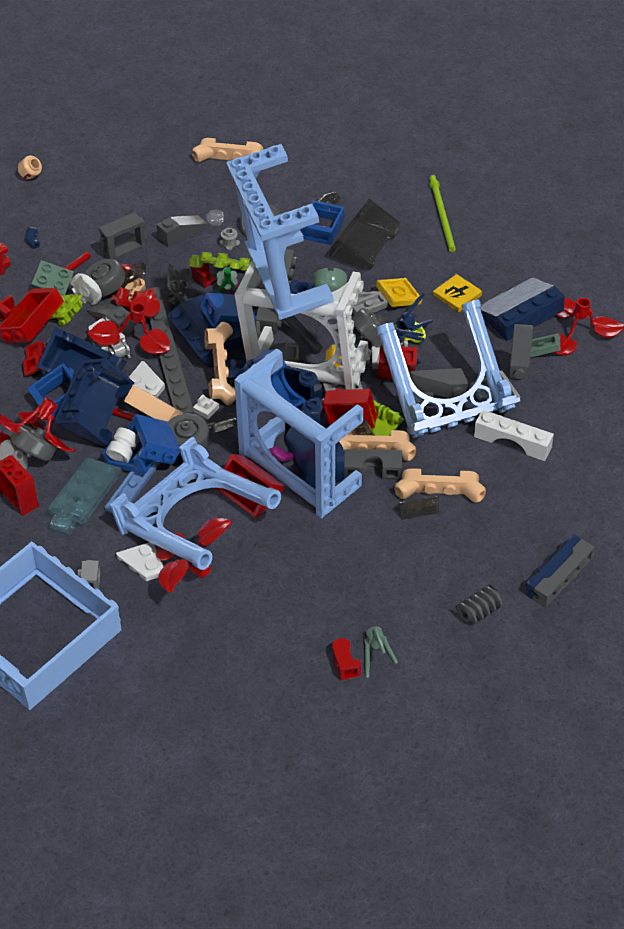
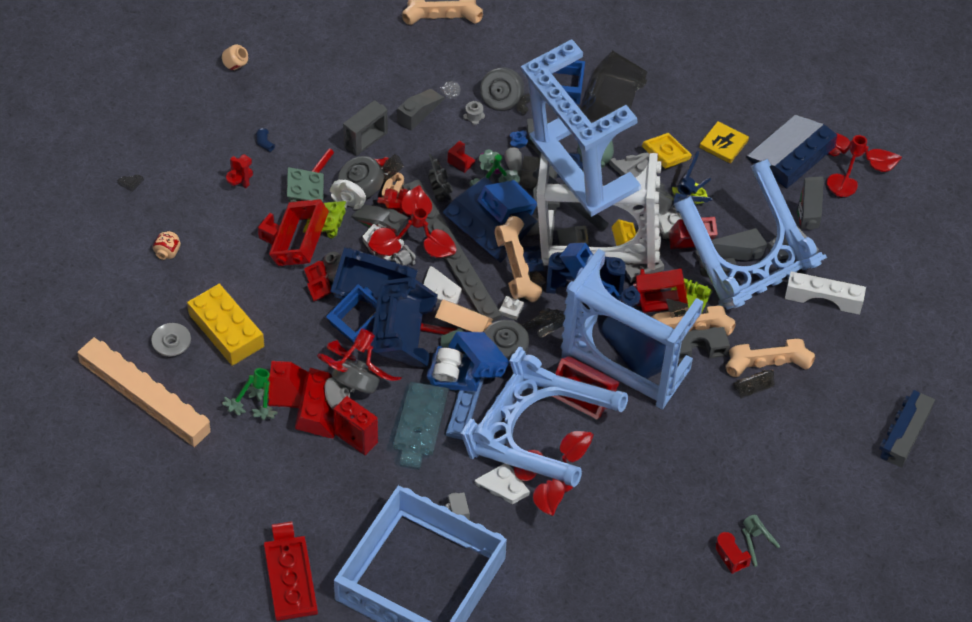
camera: 15 degrees left, 5 degrees up
(221, 261) = (477, 140): lime plant -> none
(280, 454) = (605, 349): magenta arm -> none
(434, 184) = (665, 19): lime bar -> none
(479, 605) = (842, 476): dark grey piece -> none
(545, 345) = (833, 191): sand green tile -> none

